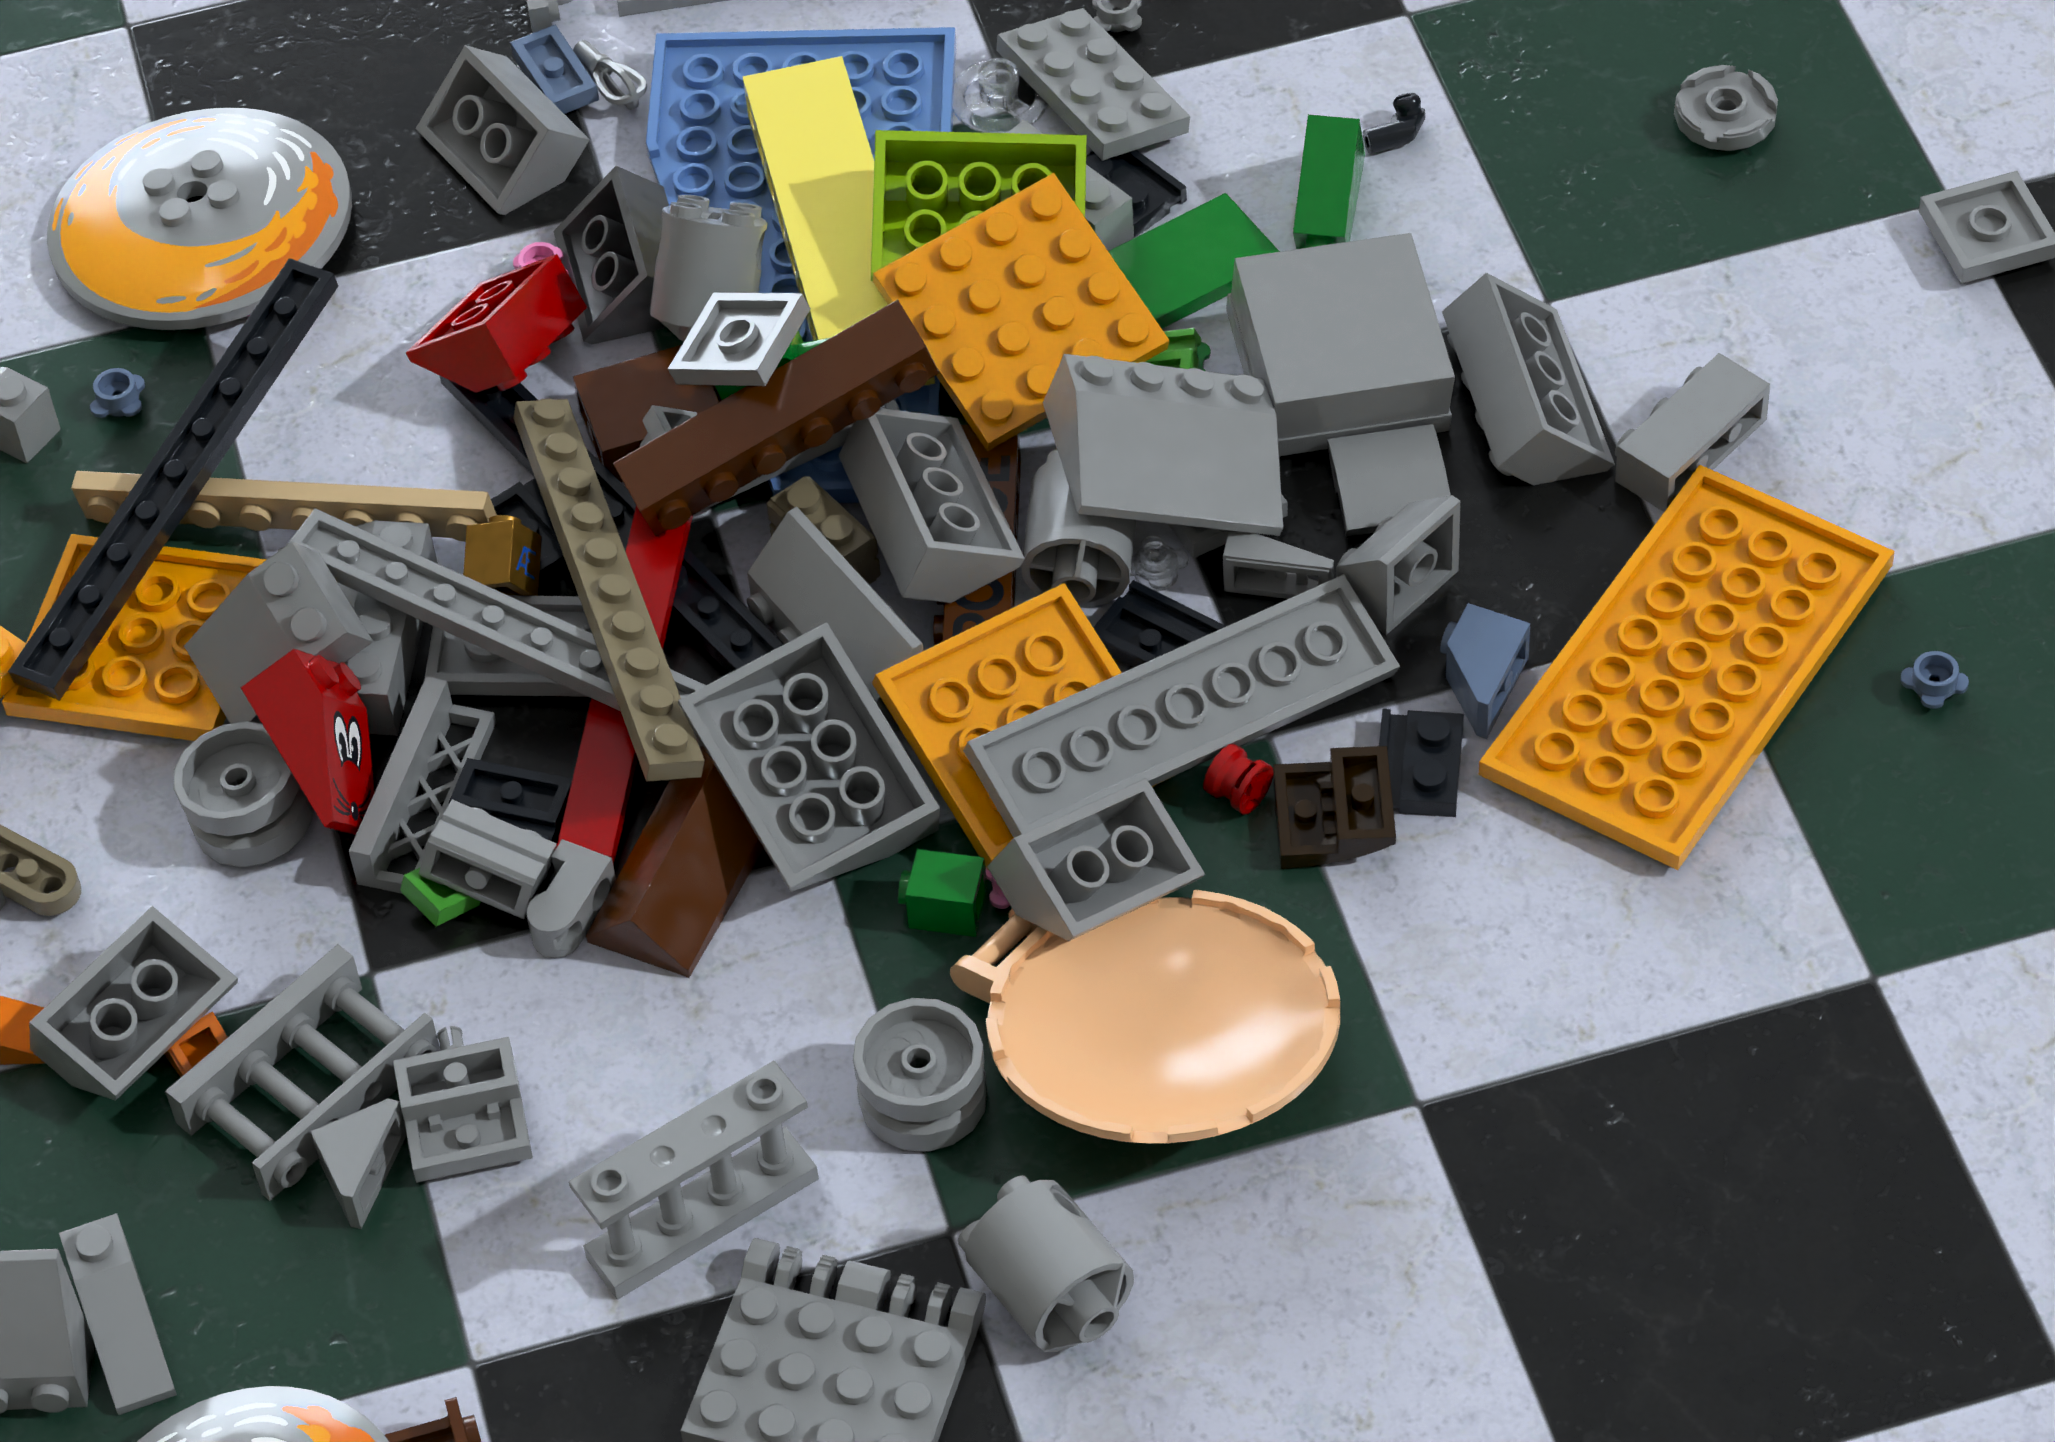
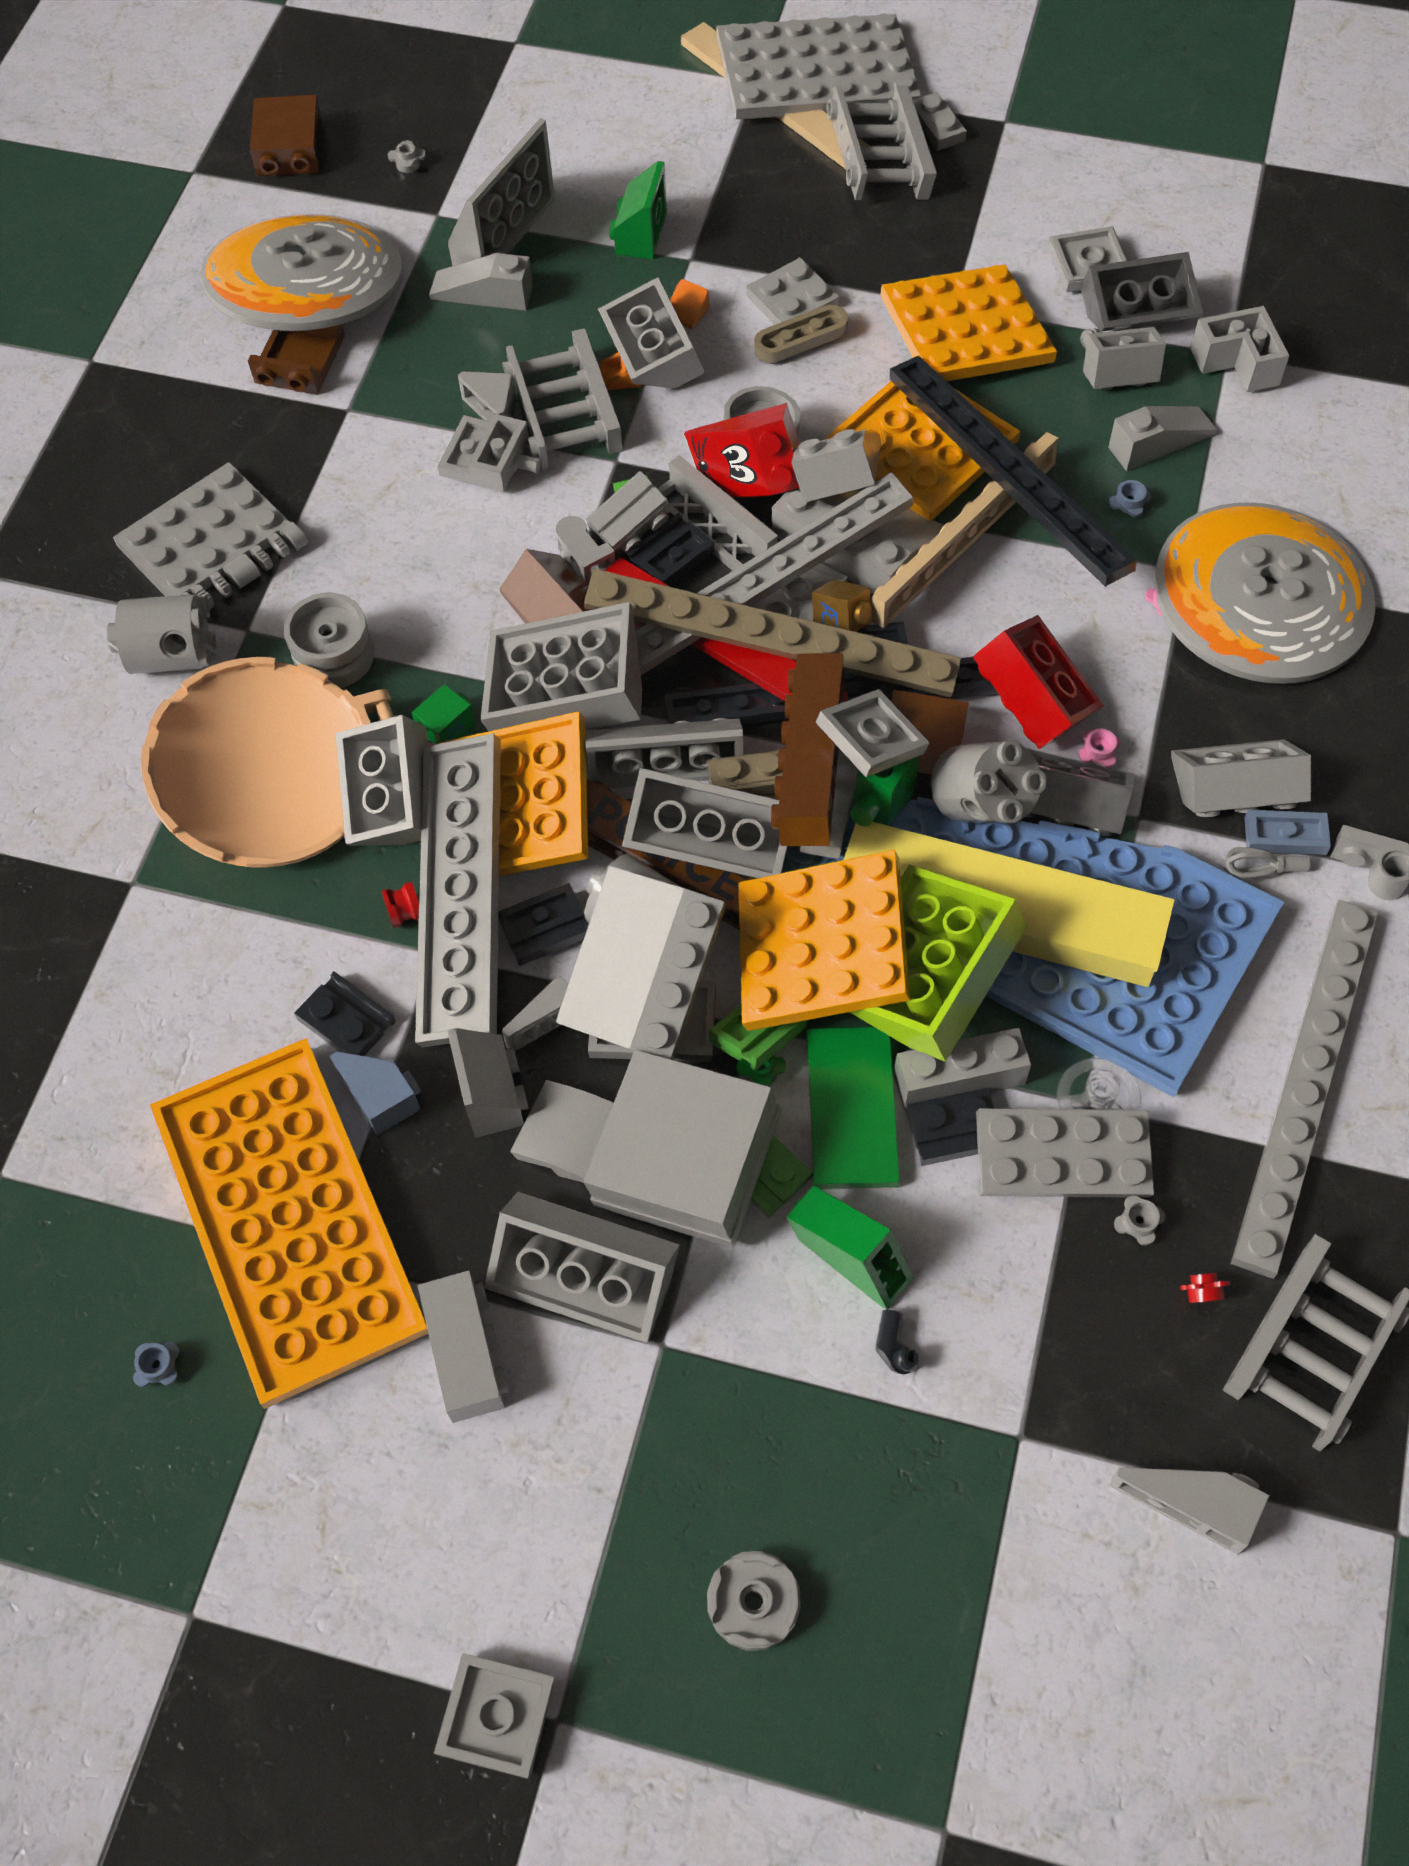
camera: 120 degrees right, 10 degrees up
(710, 1205) = (339, 505): light grey fence -> none
(1334, 807) = (345, 945): dark brown slope -> none

